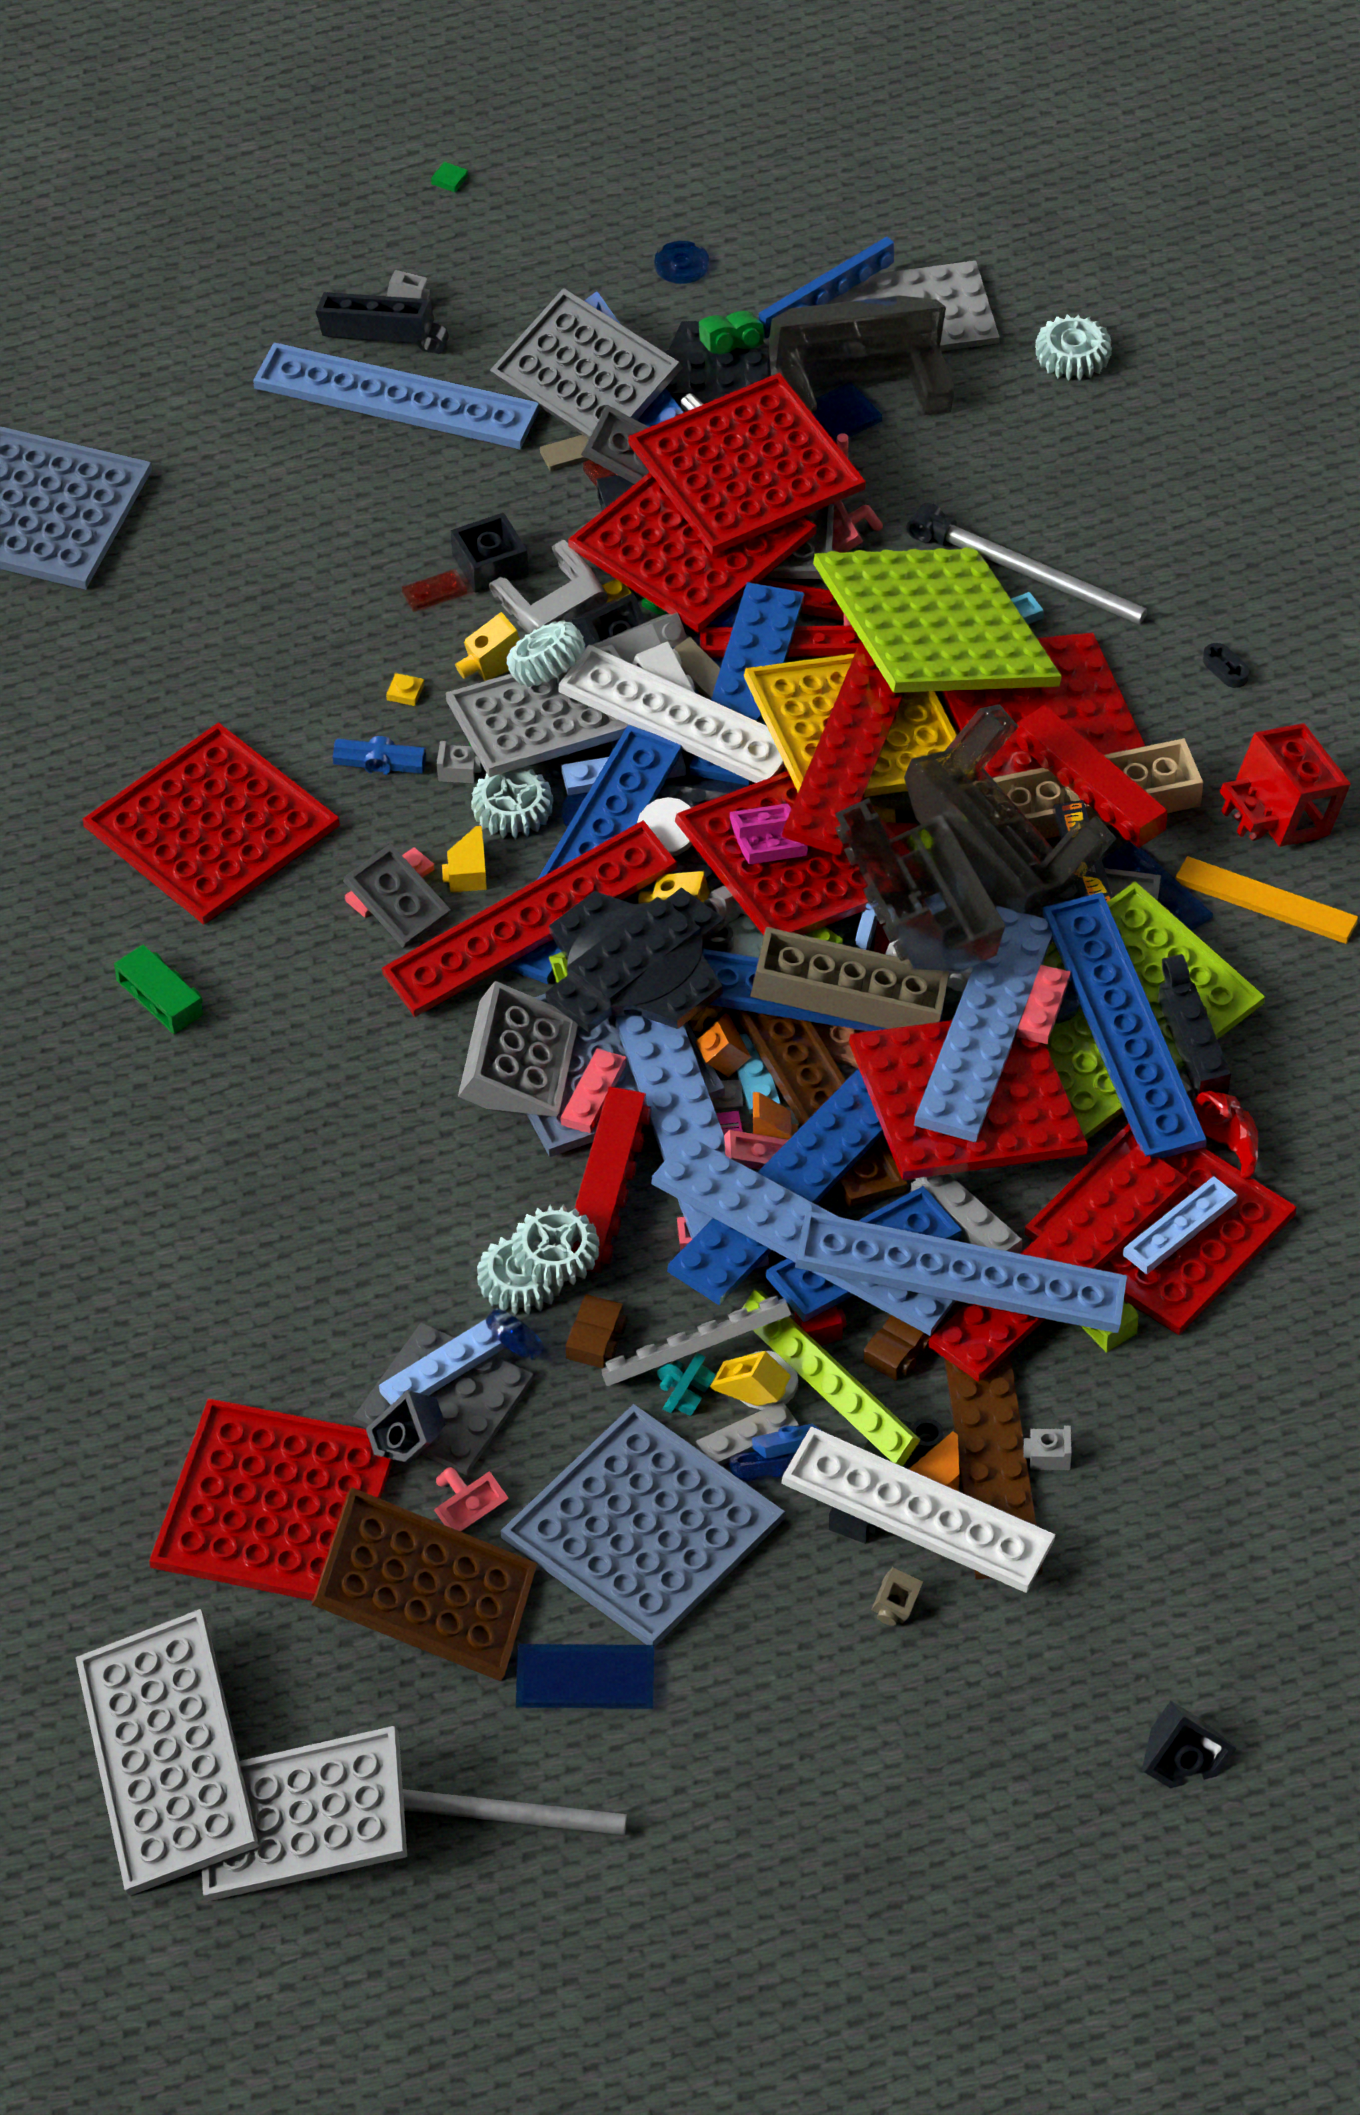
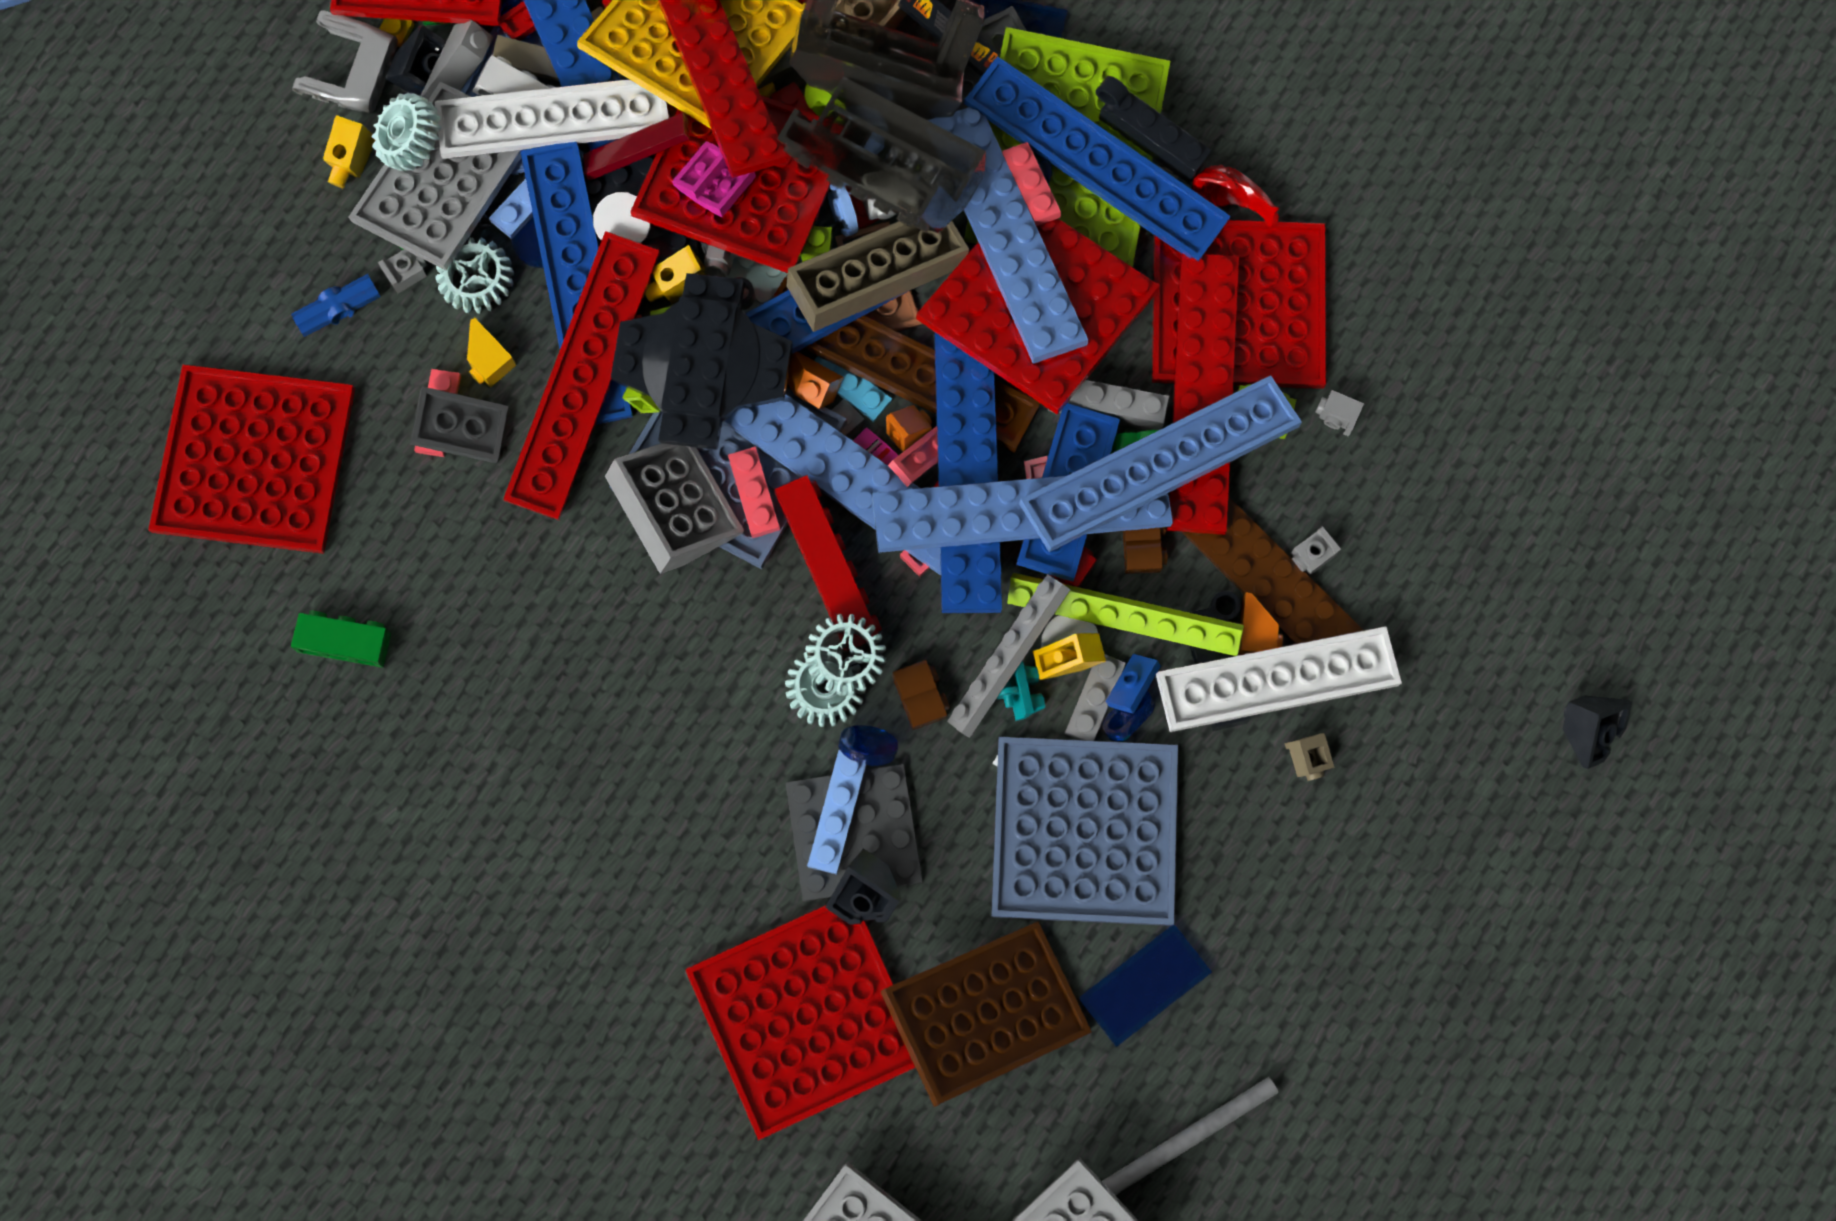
camera: 40 degrees left, 25 degrees up
(405, 689) = (303, 229): yellow plate -> none
(434, 590) = (249, 121): clear red plate -> none
(470, 1501) = (948, 907): coral plate -> none
(489, 551) = (269, 59): black brick -> none
(727, 777) = (636, 146): none -> dark red tile
(1174, 1357) = (1339, 411): none -> light grey brick
(1180, 1225) = (1264, 300): light blue plate -> none

